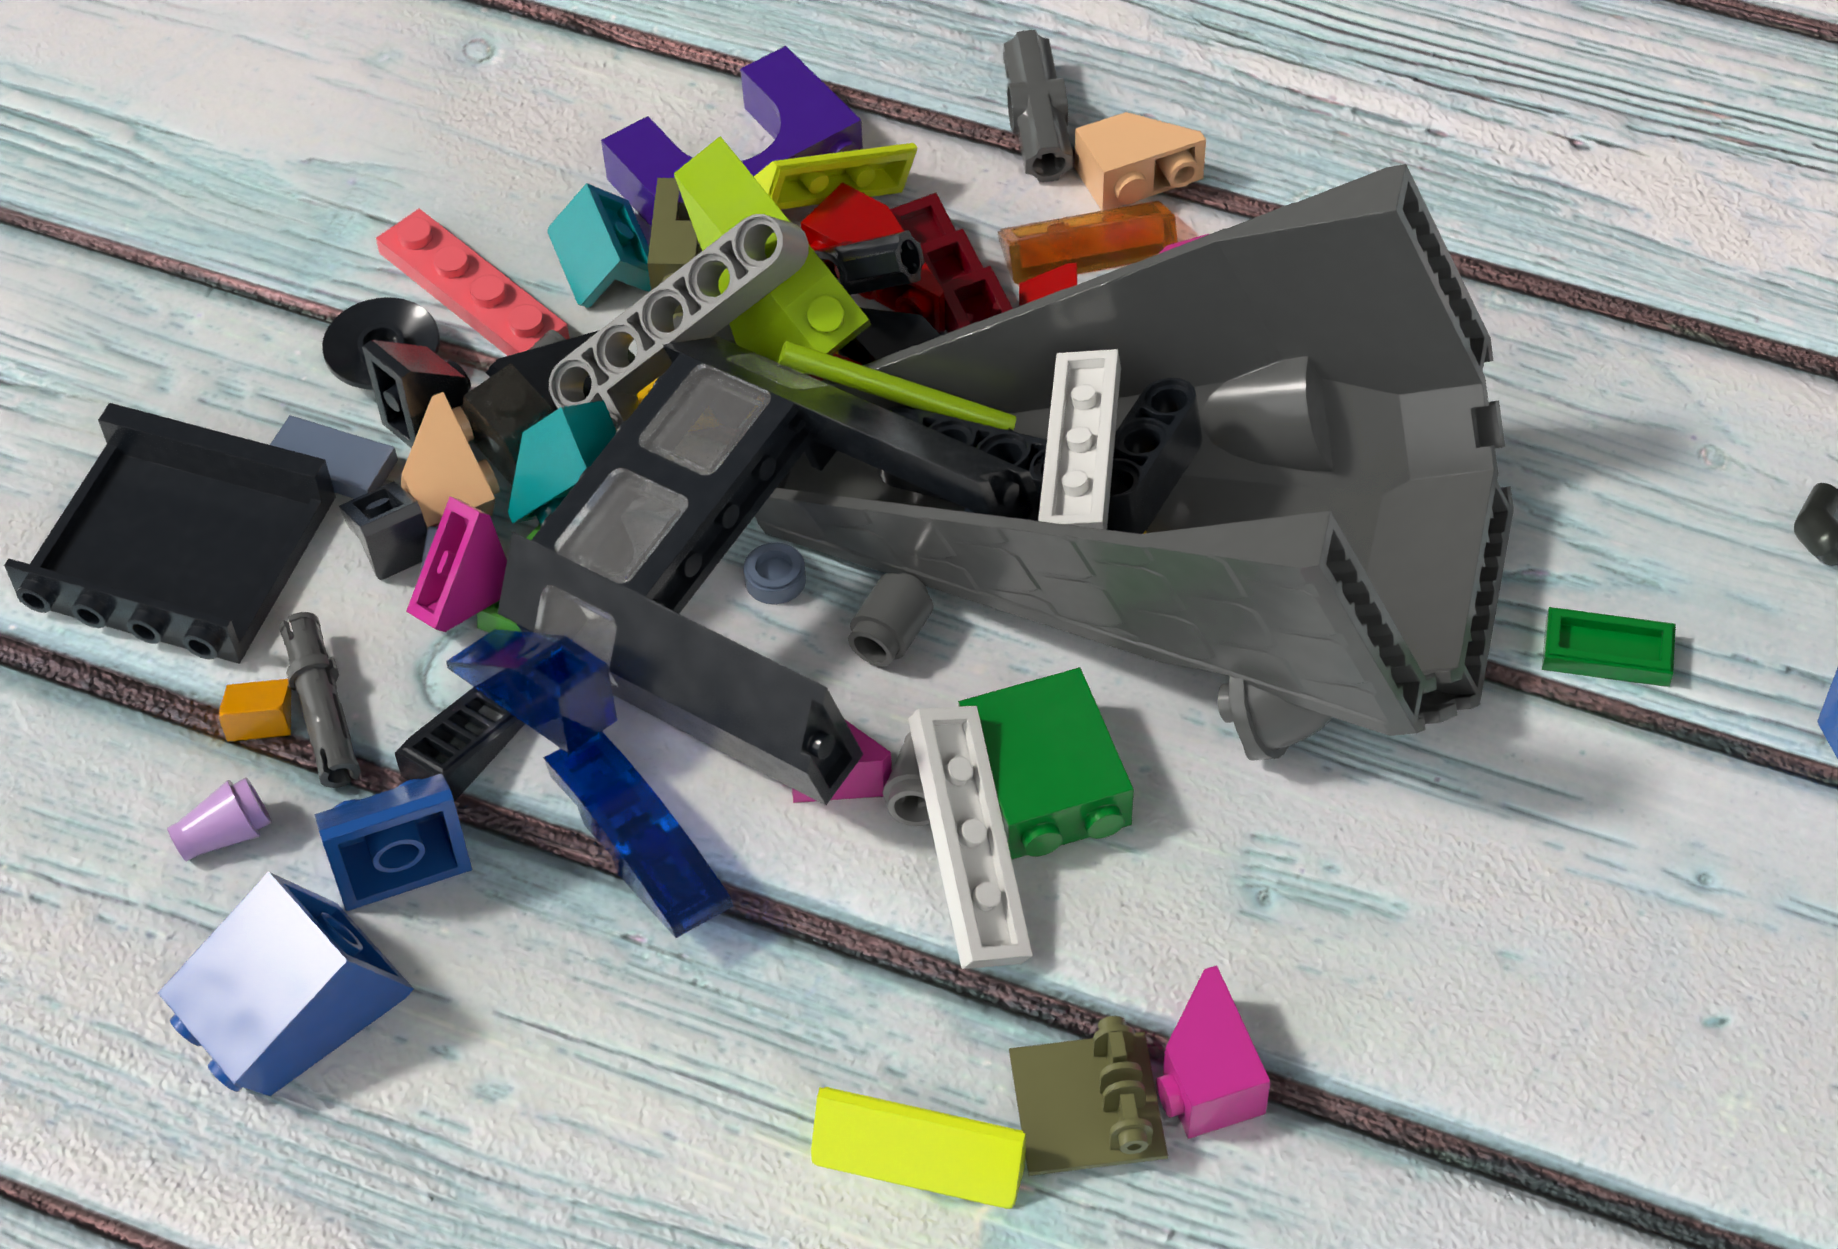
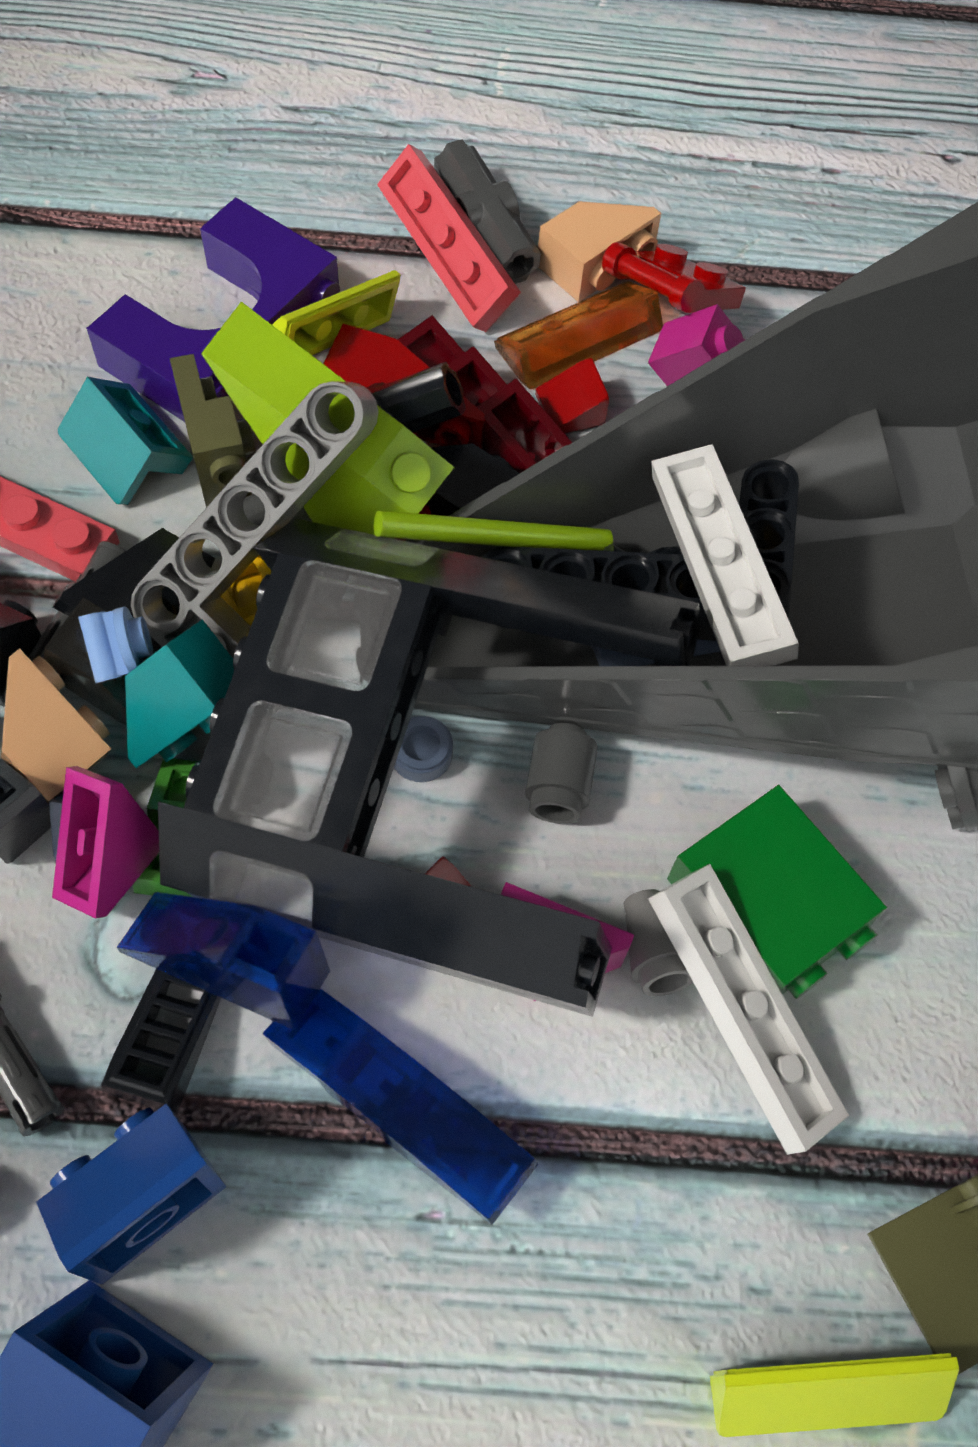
camera: 25 degrees left, 10 degrees up
(522, 401) = (115, 642): none -> light blue plate
(986, 124) = (448, 239): none -> coral plate
(1190, 201) = (670, 273): none -> red plate

